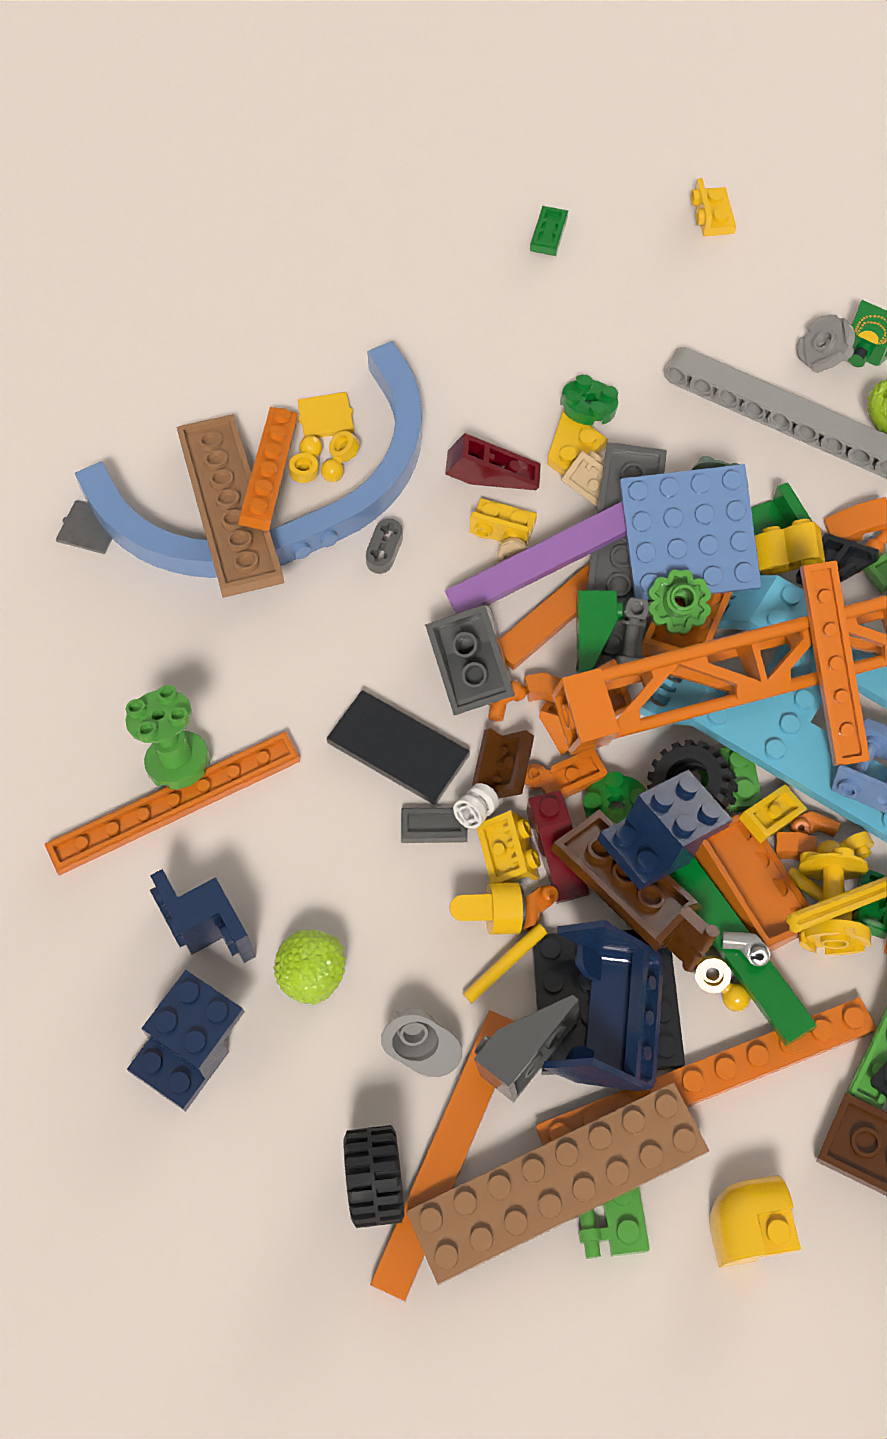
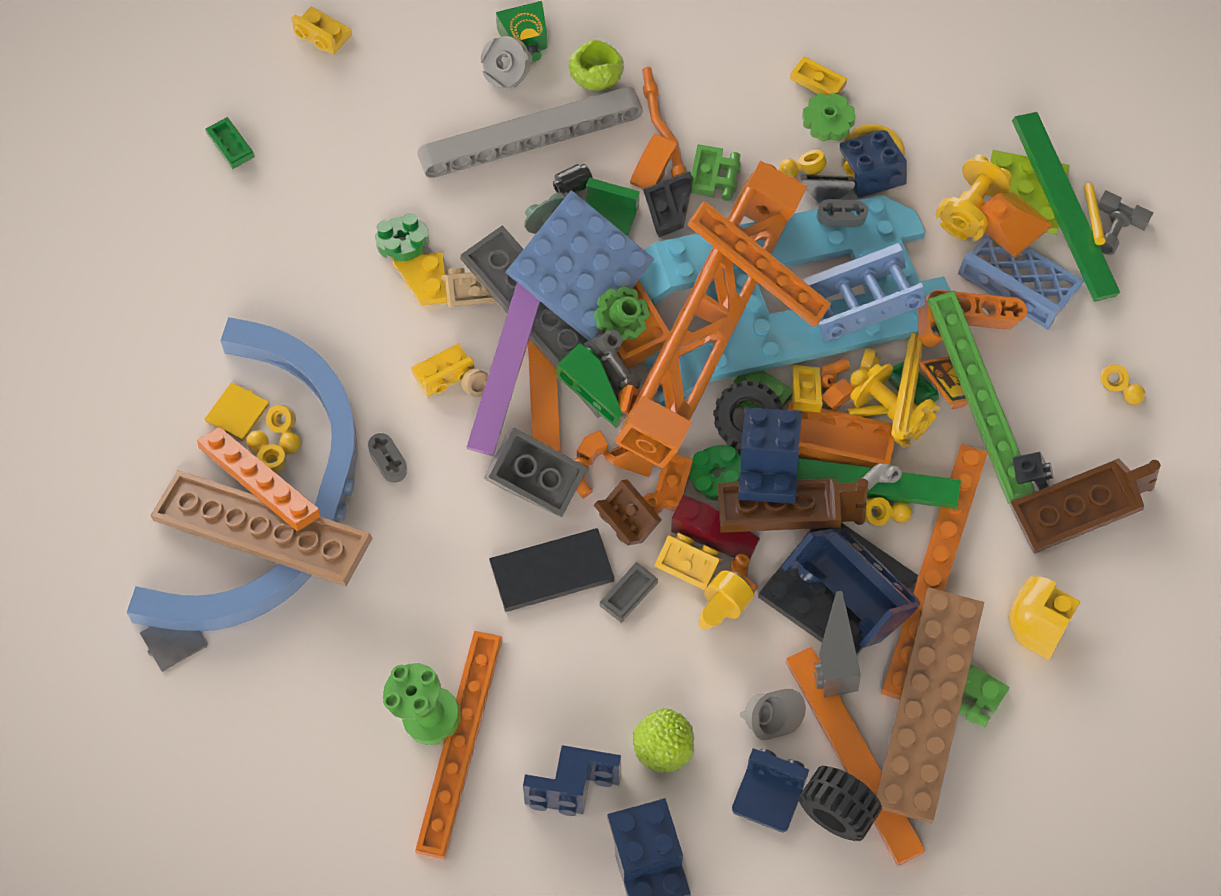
camera: 50 degrees left, 0 degrees up
(341, 1100) = (770, 790): none -> dark blue bracket
(476, 805) = (644, 553): white wheel -> none
(490, 465) = (391, 340): dark red slope -> none
(505, 963) = (763, 624): yellow bar -> none
(773, 473) = (572, 179): none -> black brick
(789, 548) = (639, 216): yellow brick -> none

